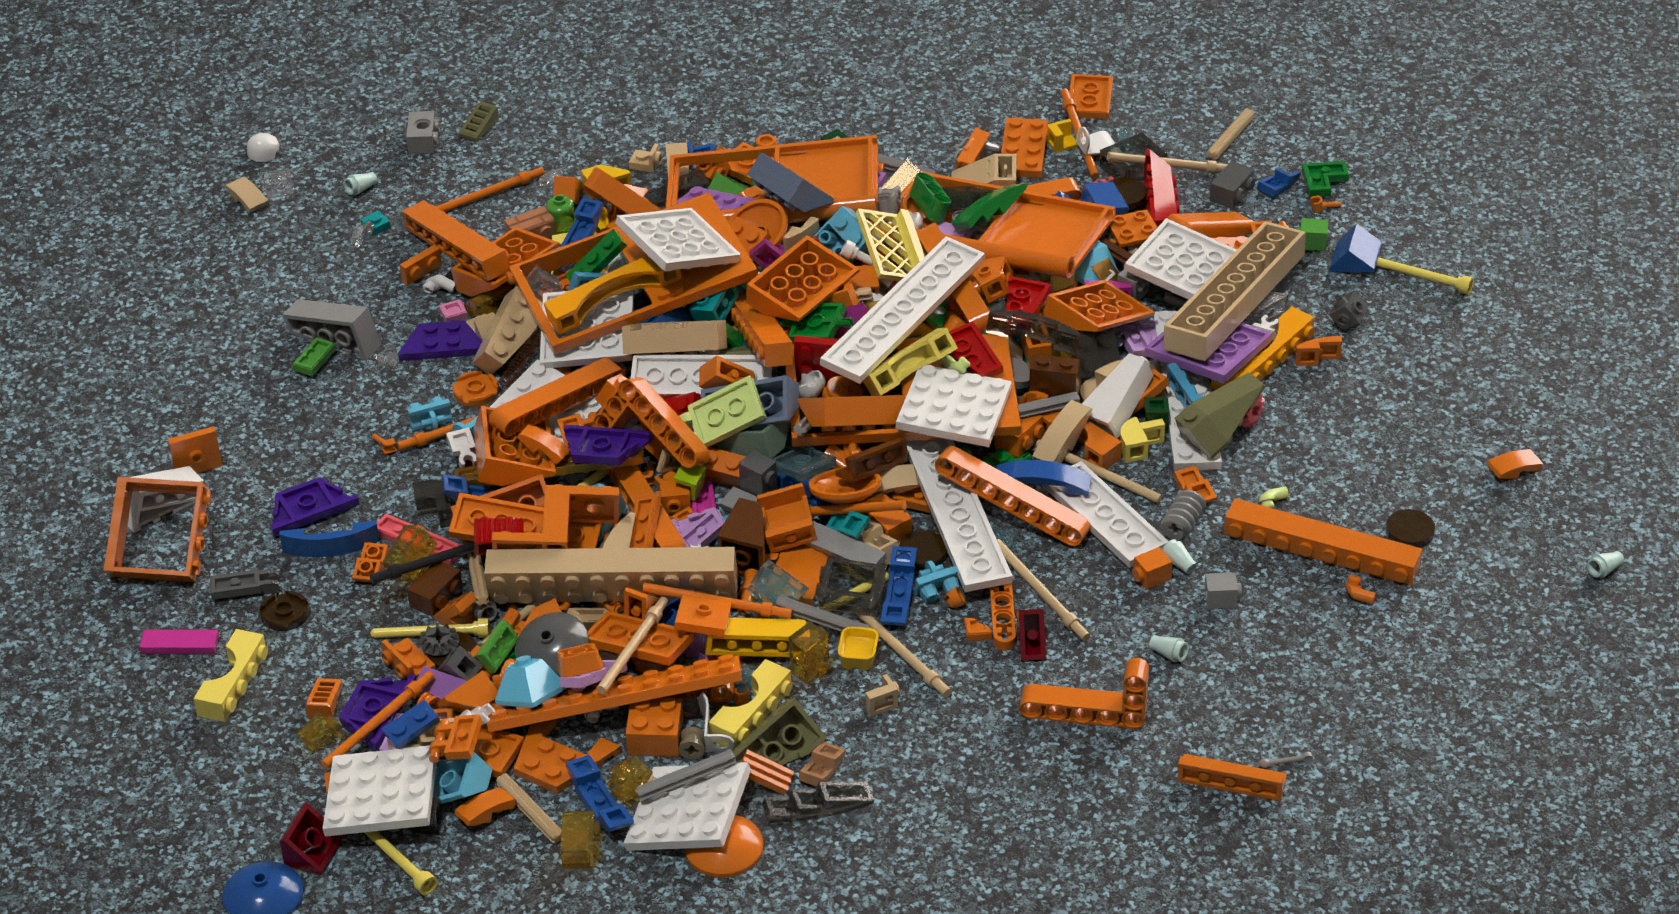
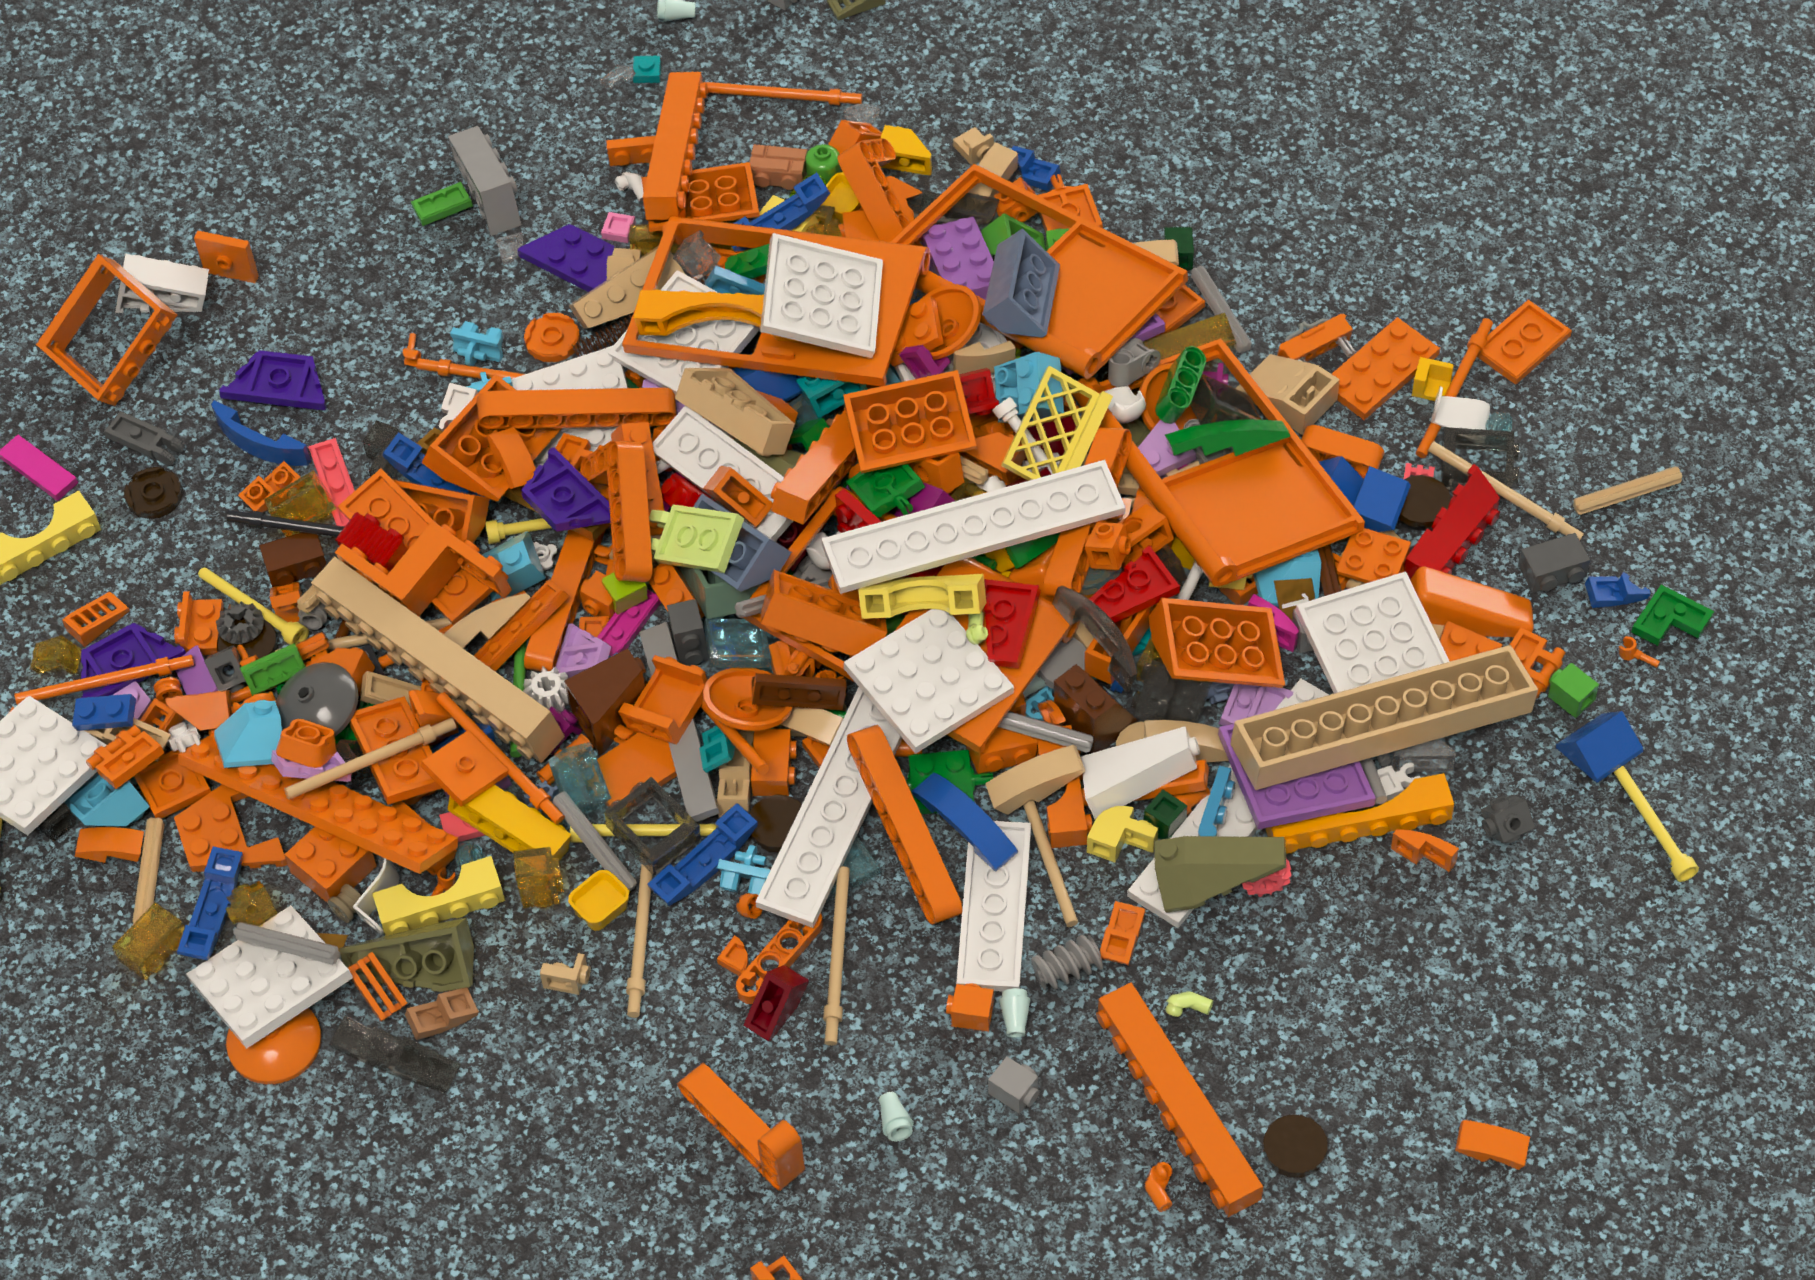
camera: 40 degrees right, 15 degrees up
(765, 140) = (1116, 198): orange tile -> none

